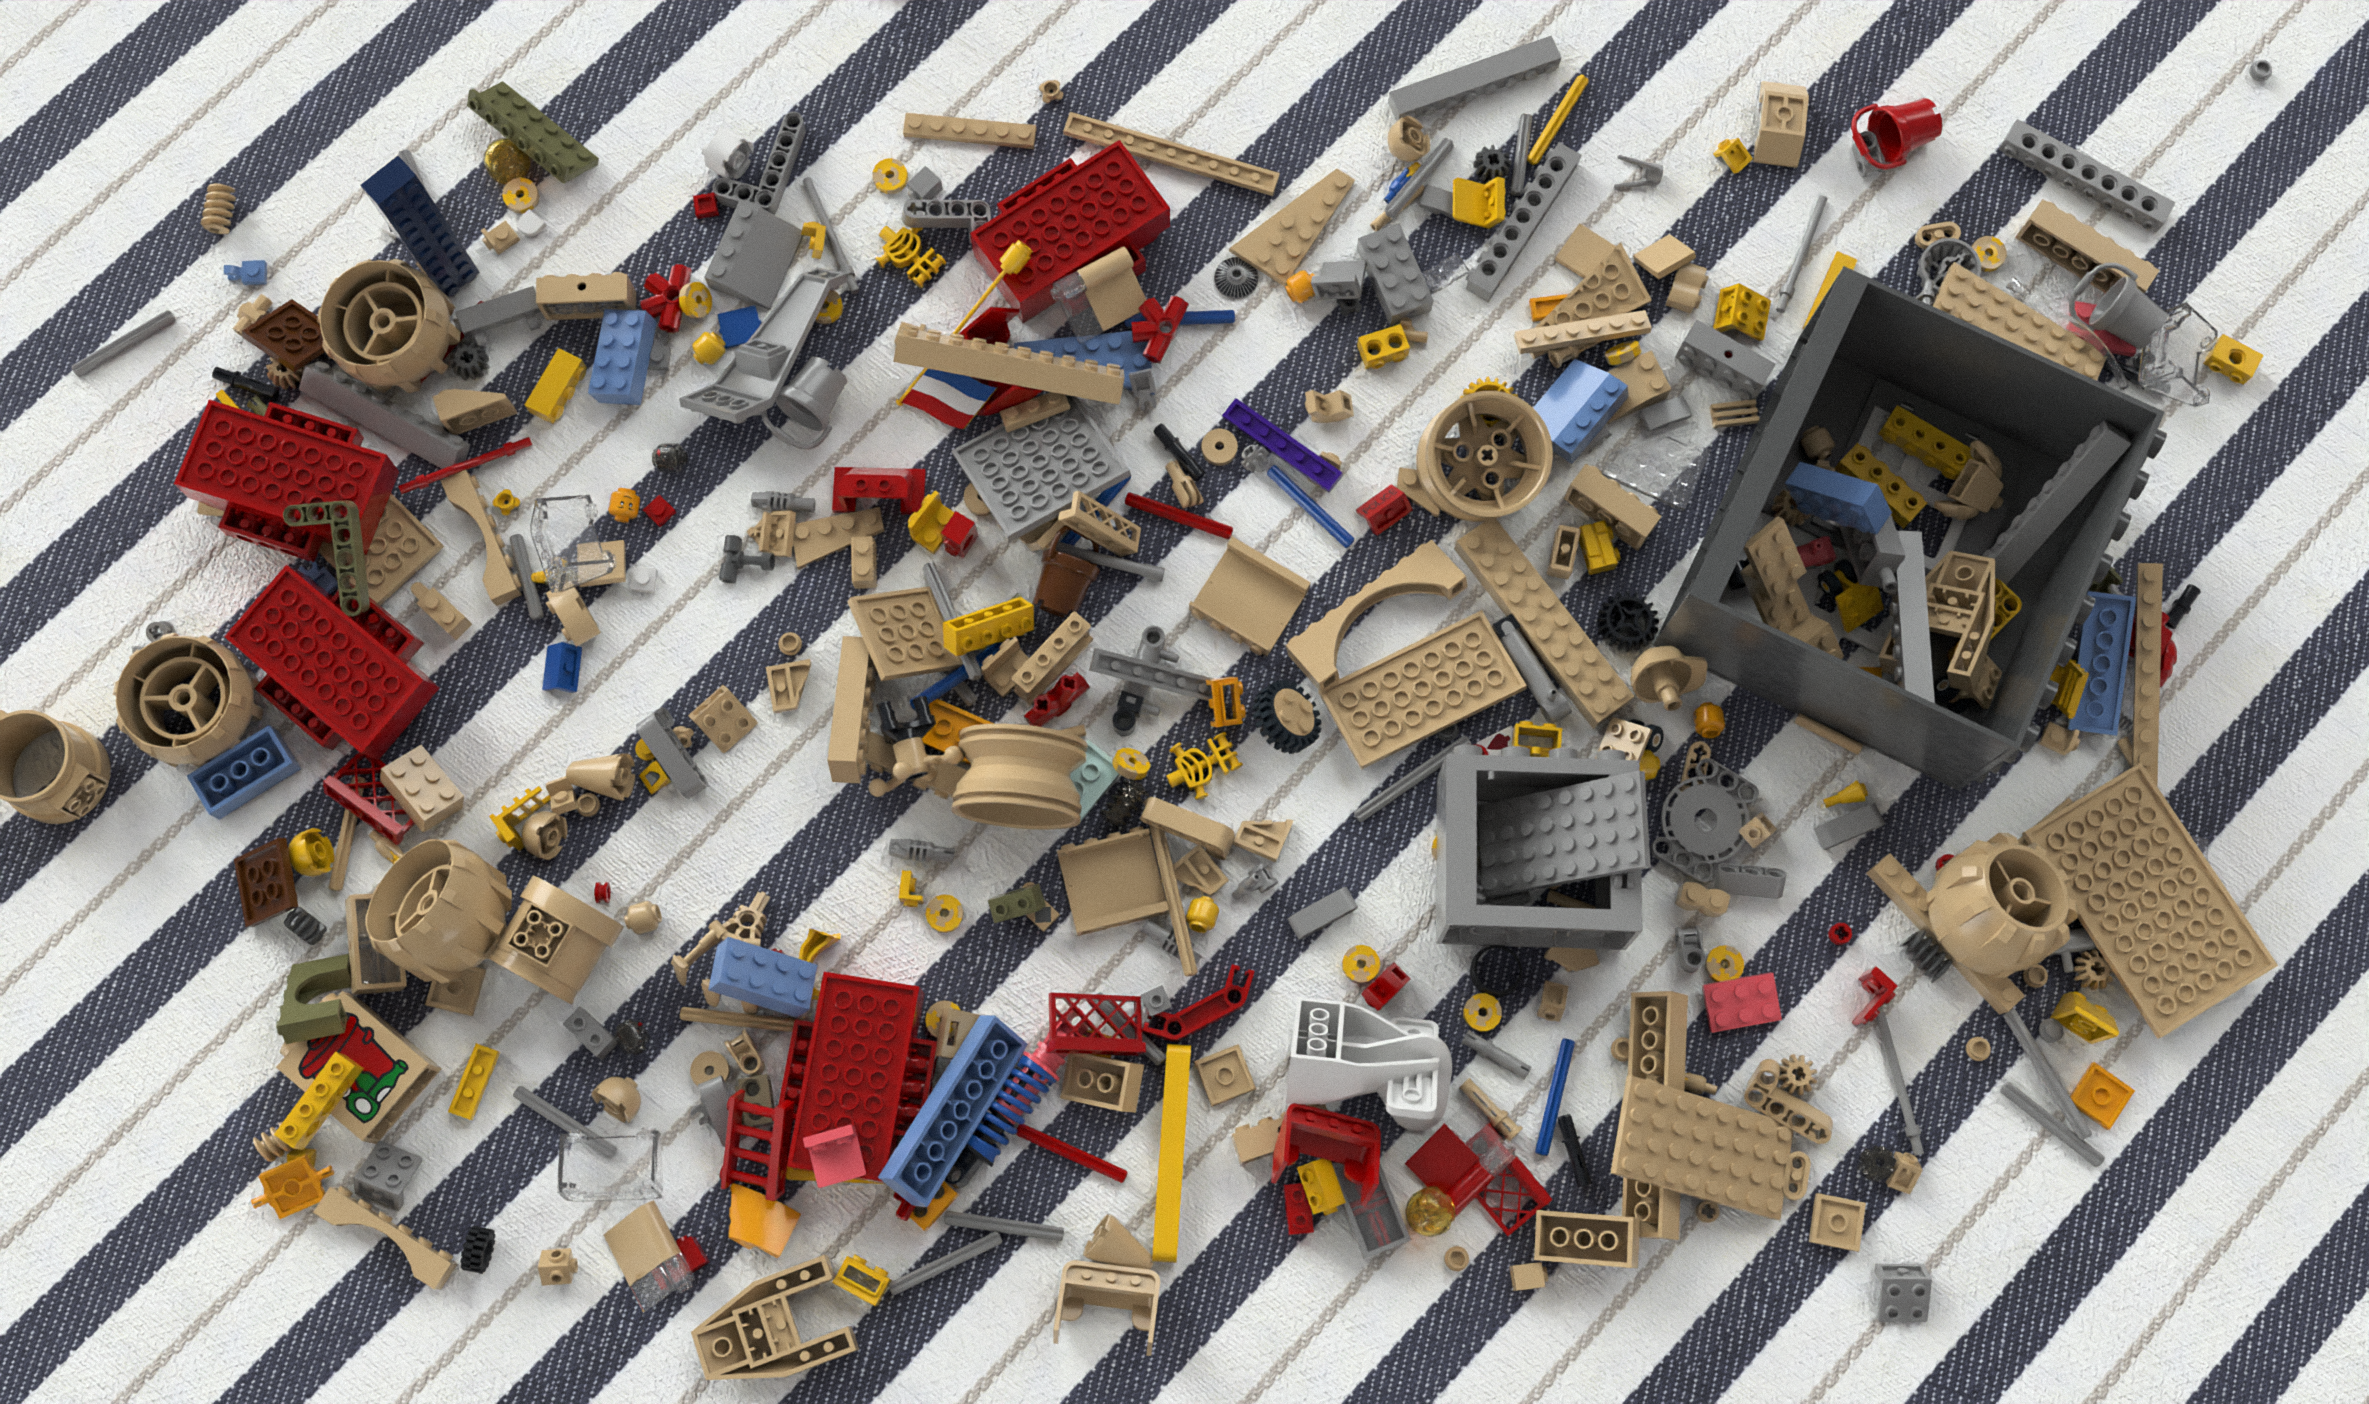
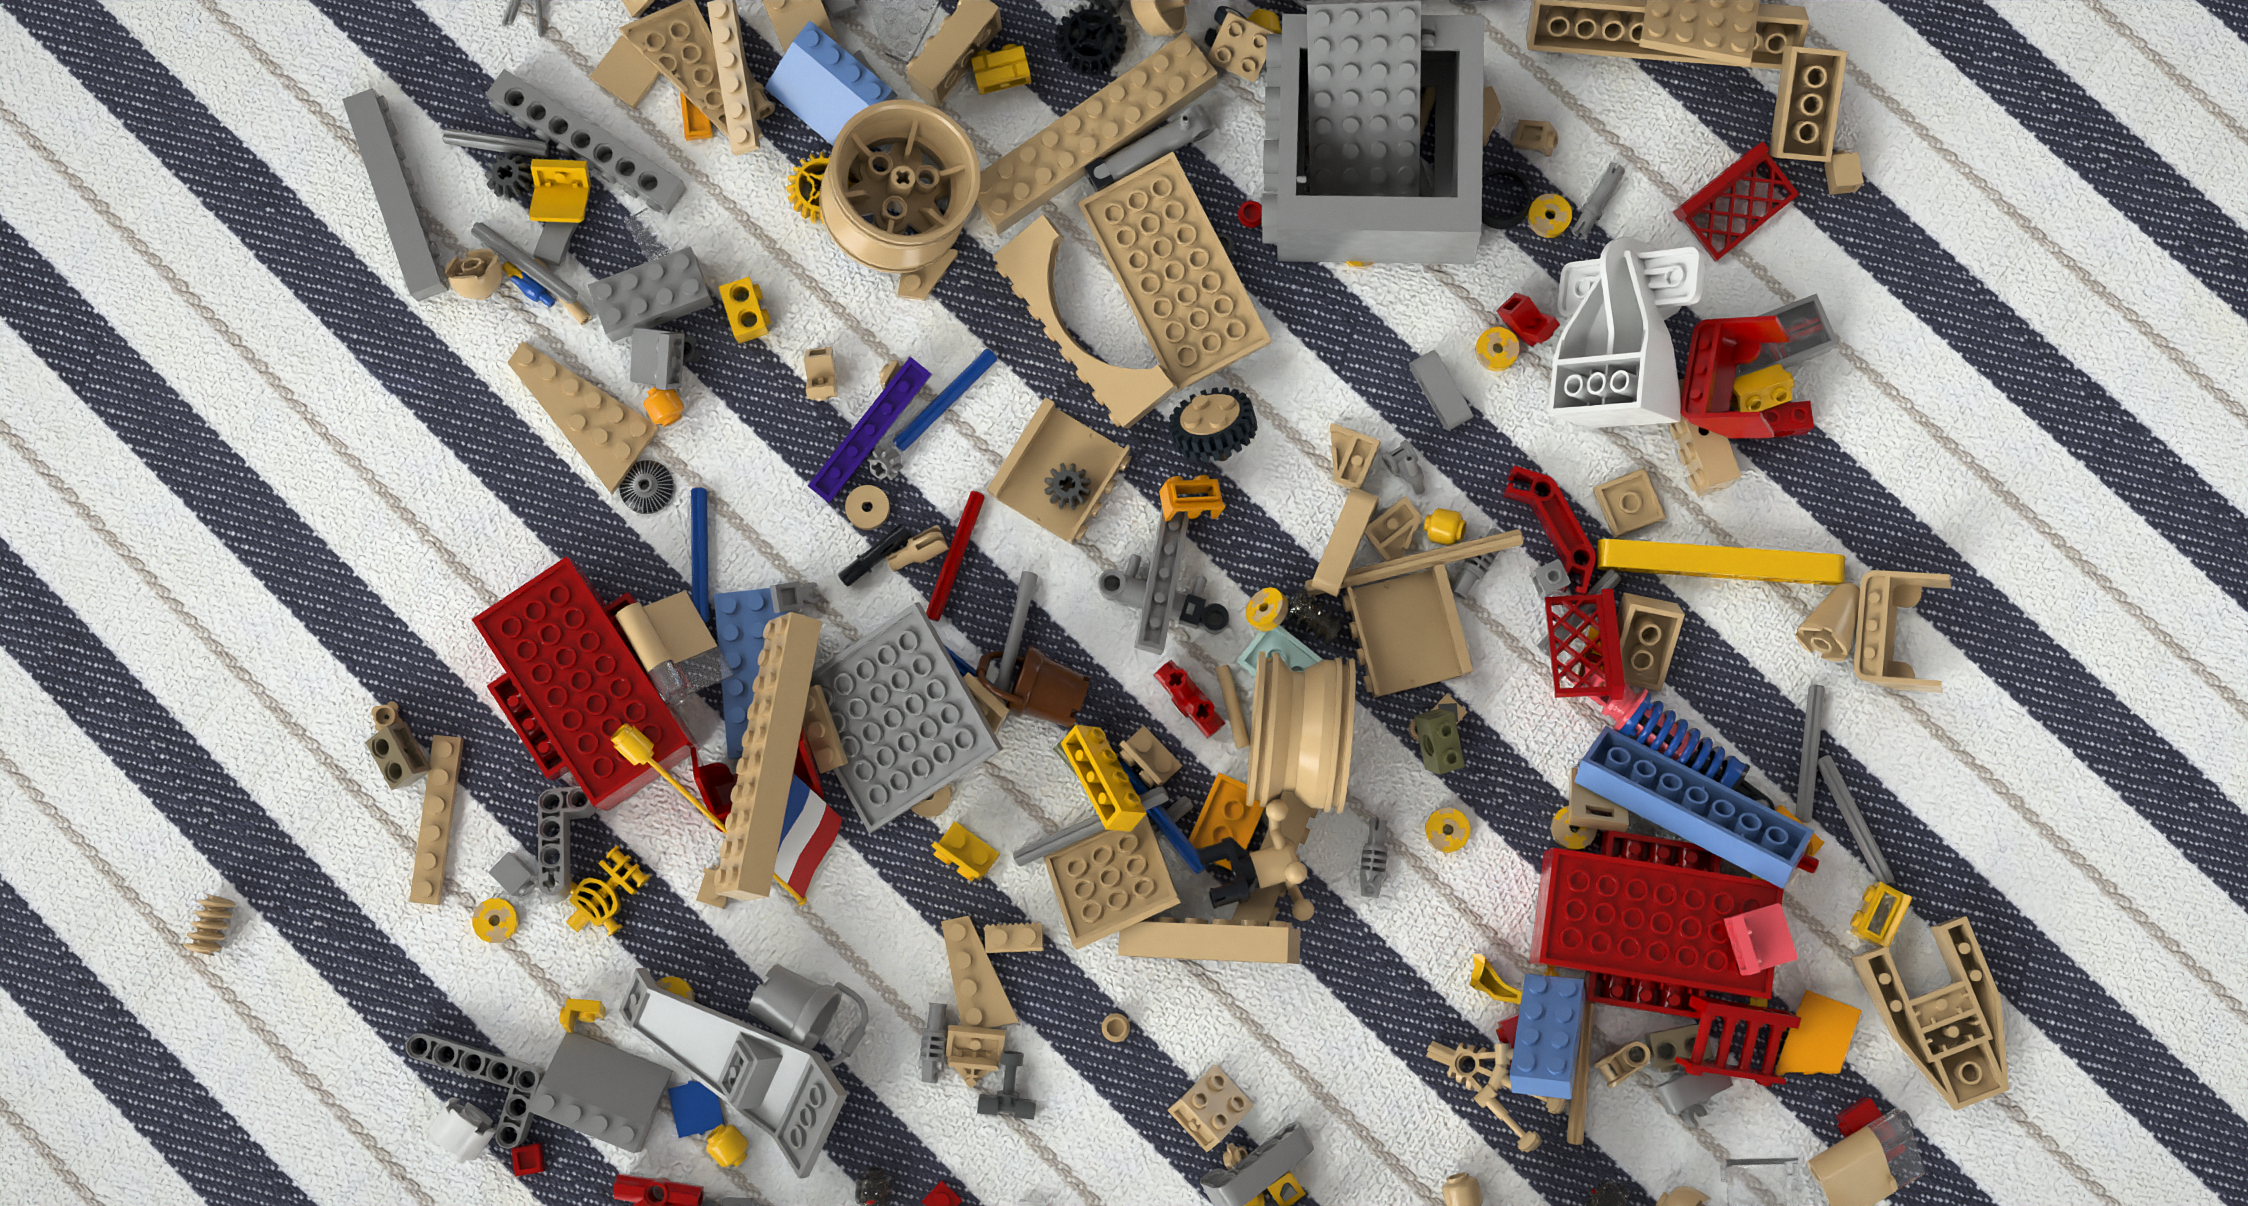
camera: 85 degrees left, 5 degrees up
(703, 302) = (662, 1165): yellow piece -> none
(705, 1060) = (1628, 1105): tan piece -> none
(787, 684) = (1168, 1028): tan wing -> none
(845, 267) = (624, 973): light grey bar -> none
(878, 483) = (917, 923): red windscreen -> none
(908, 885) = (1417, 874): yellow bracket -> none
(959, 535) = (983, 819): red brick -> none
(1018, 99) = (398, 755): none -> dark tan brick
(1052, 658) = (1141, 701): tan fence -> none
(1072, 1153) = (1725, 674): red axle -> none
(1101, 532) = (985, 640): tan fence -> none
(1156, 318) = (719, 586): red piece -> none
(1173, 154) = (479, 566): tan plate -> none
(1182, 775) = (1277, 551): yellow piece -> none
(1227, 599) = (1062, 478): none -> dark grey gear
(1385, 509) = (949, 312): red panel -> none
(1407, 782) = (1279, 287): light grey axle -> none
(1410, 333) = (728, 275): tan arm -> none
(1430, 1212) = (1780, 274): clear yellow cylinder -> none
(1456, 1258) = (1825, 249): tan plate -> none
(1462, 1157) = (1727, 234): red door -> none
(1468, 1088) = (1668, 197): tan pin -> none
(1498, 741) = (1232, 188): sticker -> none
(1547, 730) = (1235, 123): yellow window -> none
(1555, 1097) = (1643, 139): blue axle -> none
(1557, 119) = (451, 98): yellow axle -> none
(1563, 552) = (1008, 106): tan brick -> none
(1574, 1150) = (1703, 119): black axle -> none
(1620, 1049) = (1587, 65): tan plate -> none
(1623, 352) = (759, 30): piece -> none

